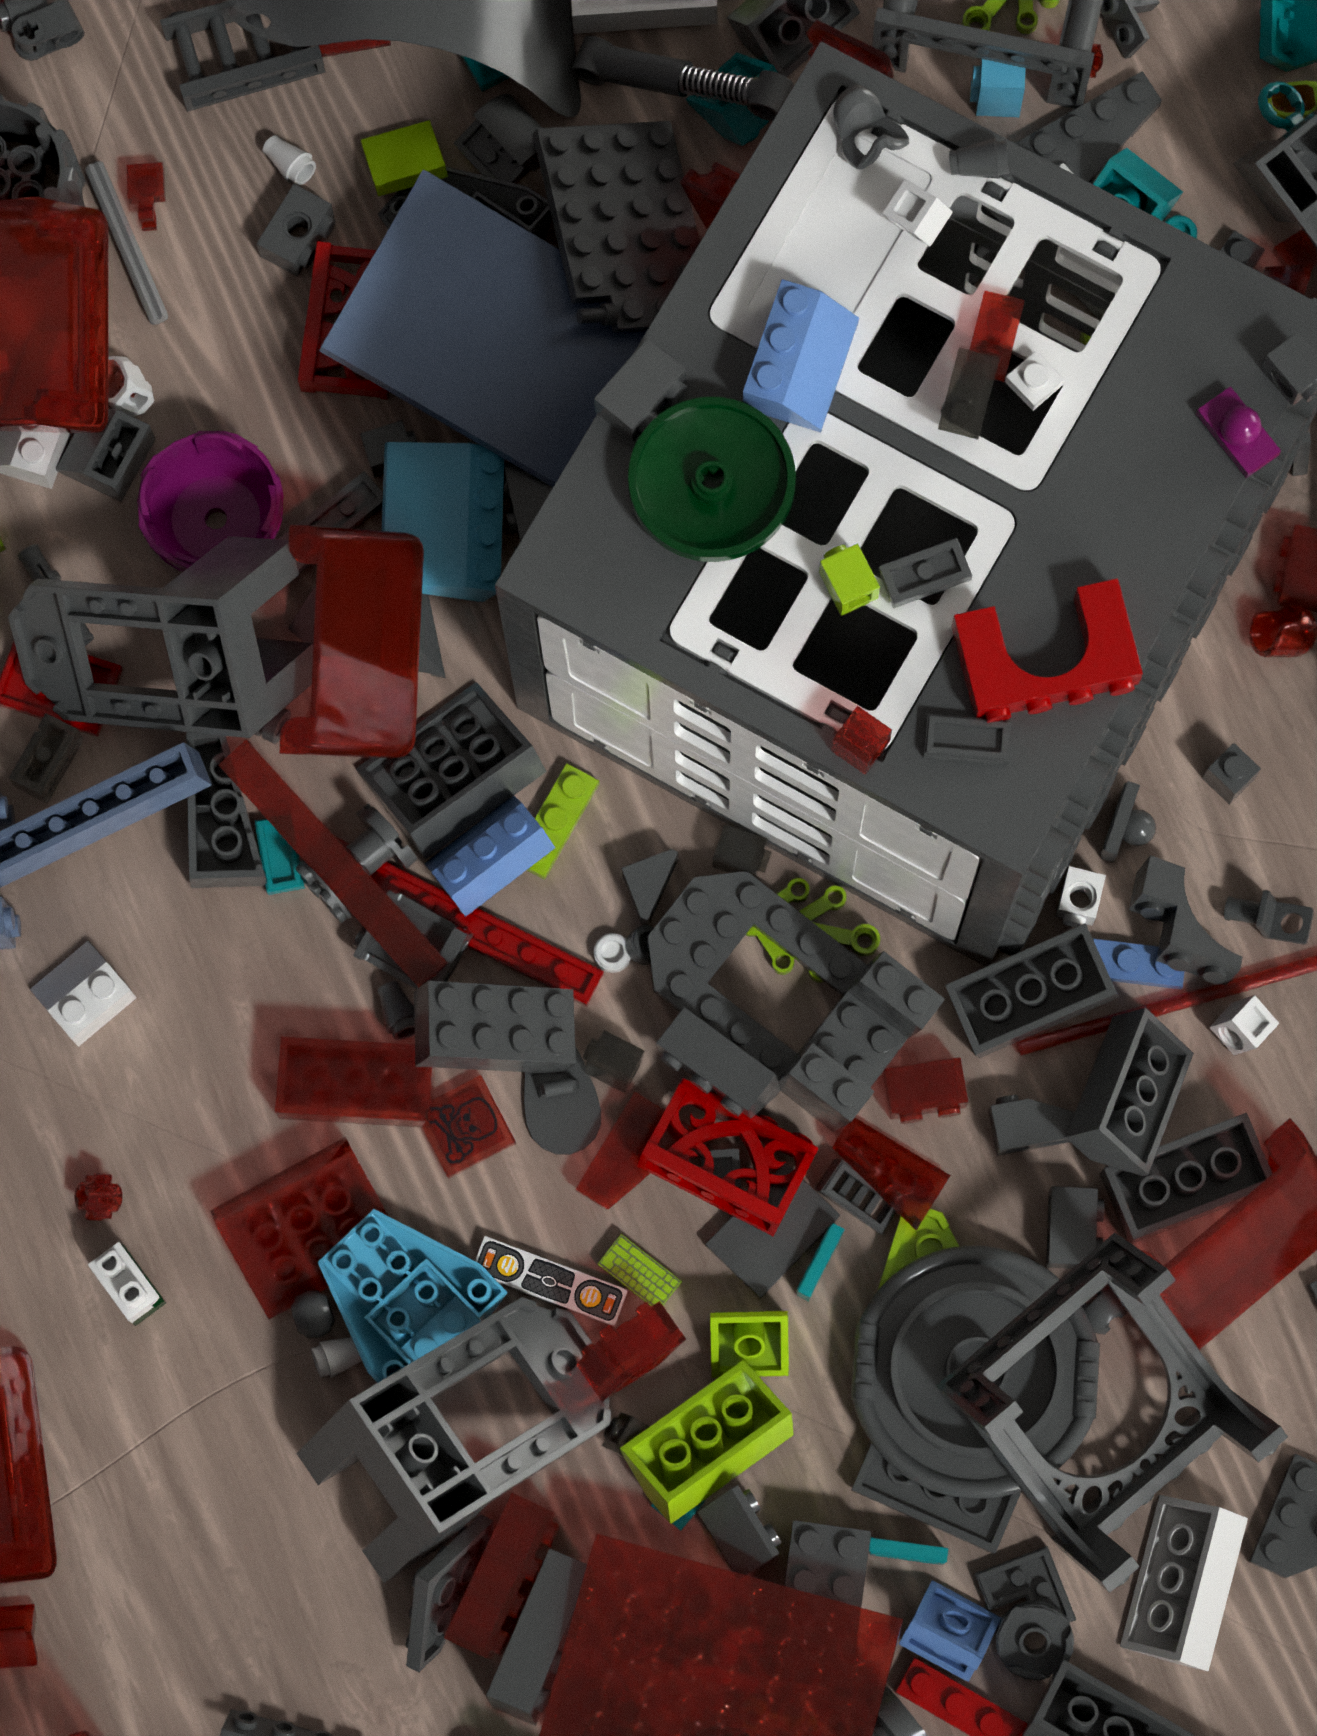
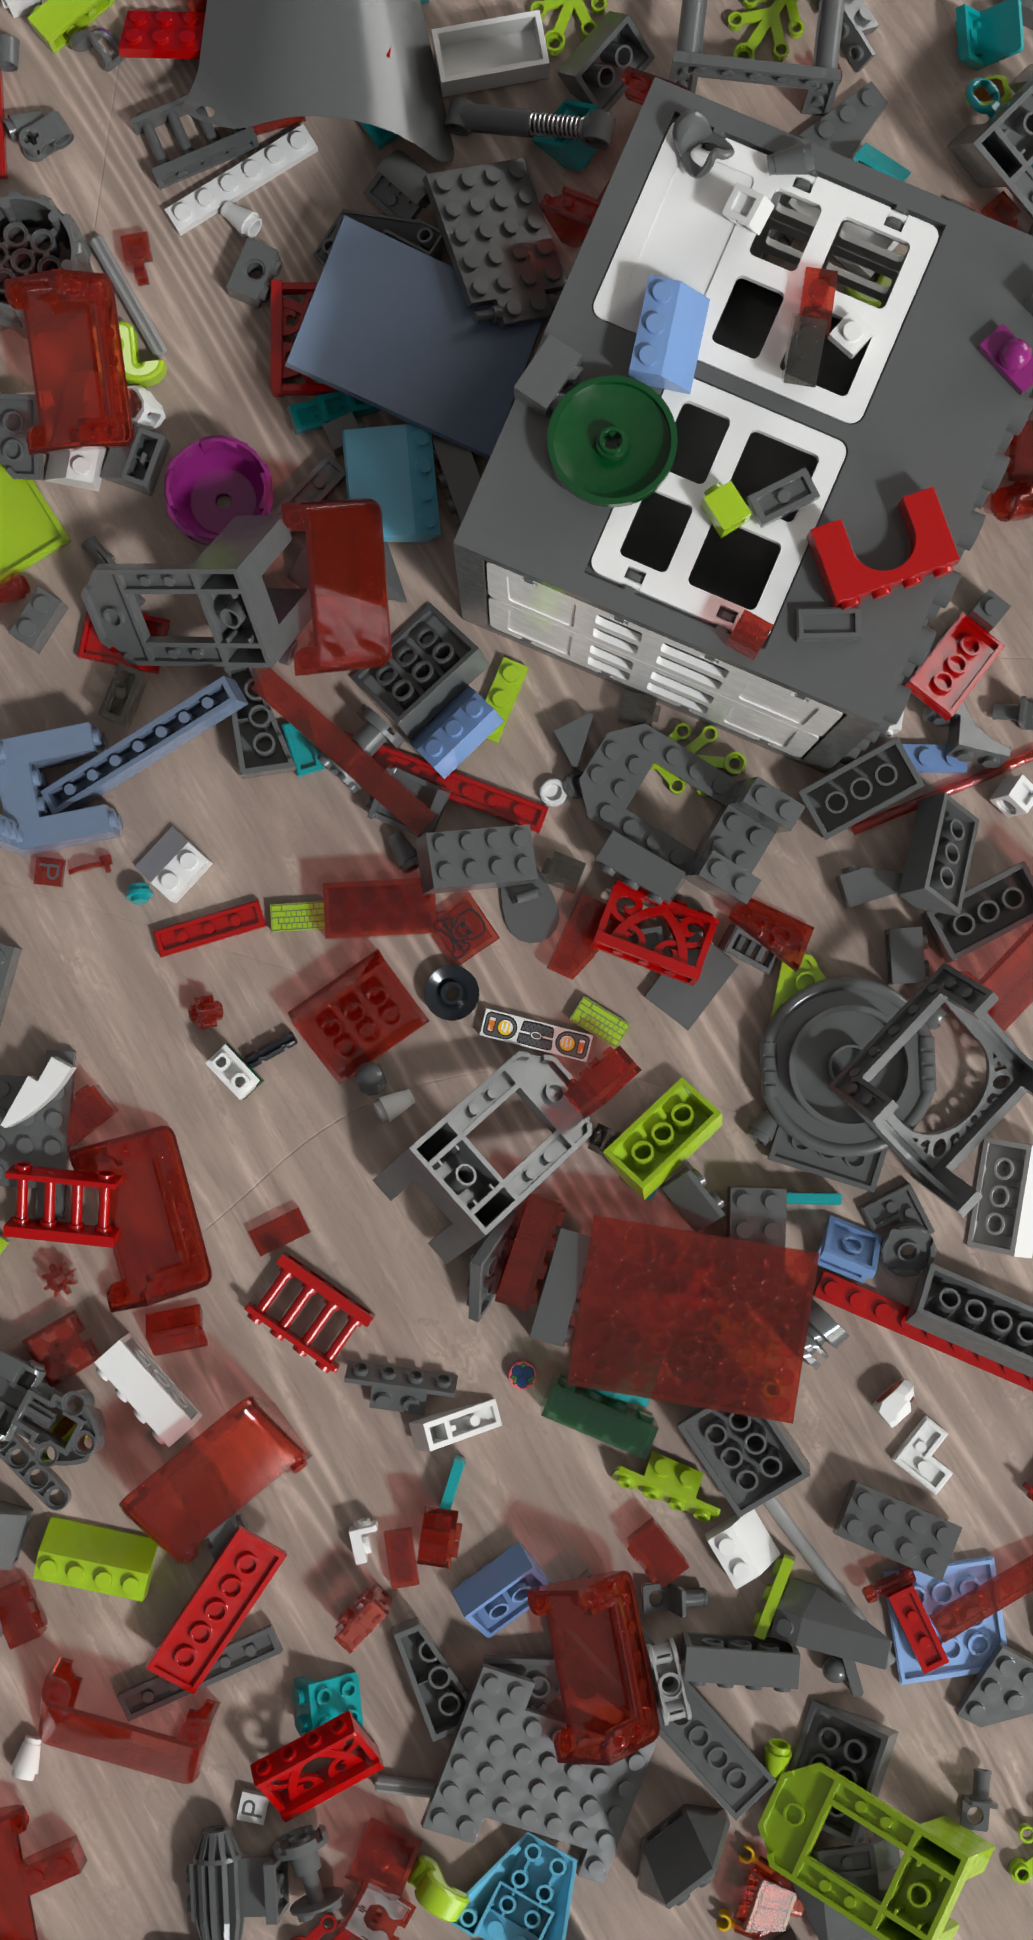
camera: 10 degrees left, 10 degrees up
(29, 1025) = (139, 893): none -> teal plate
(119, 1085) = (209, 928): none -> red tile
(123, 341) = (144, 373): none -> lime animal
(159, 1515) = (279, 1231): none -> clear red tile
(181, 1259) = (271, 1049): none -> black axle
(192, 1595) = (311, 1285): none -> red fence
(240, 1082) = (297, 916): none -> lime tile
(296, 110) = (241, 179): none -> white plate
(369, 411) = (326, 407): none -> teal slope
(401, 155) = (325, 207): lime tile -> none
(404, 1292) = (435, 1059): medium azure wedge -> none
(436, 1189) = (436, 993): none -> black dish
(750, 1336) = (687, 1060): lime slope -> none
(819, 1261) = (728, 1000): teal tile -> none
(849, 1446) = (763, 1128): none -> dark grey cone
(925, 1090) = (790, 867): clear red brick -> none
(997, 89) = (767, 104): medium azure brick -> none
(1177, 841) = (954, 666): none -> tile

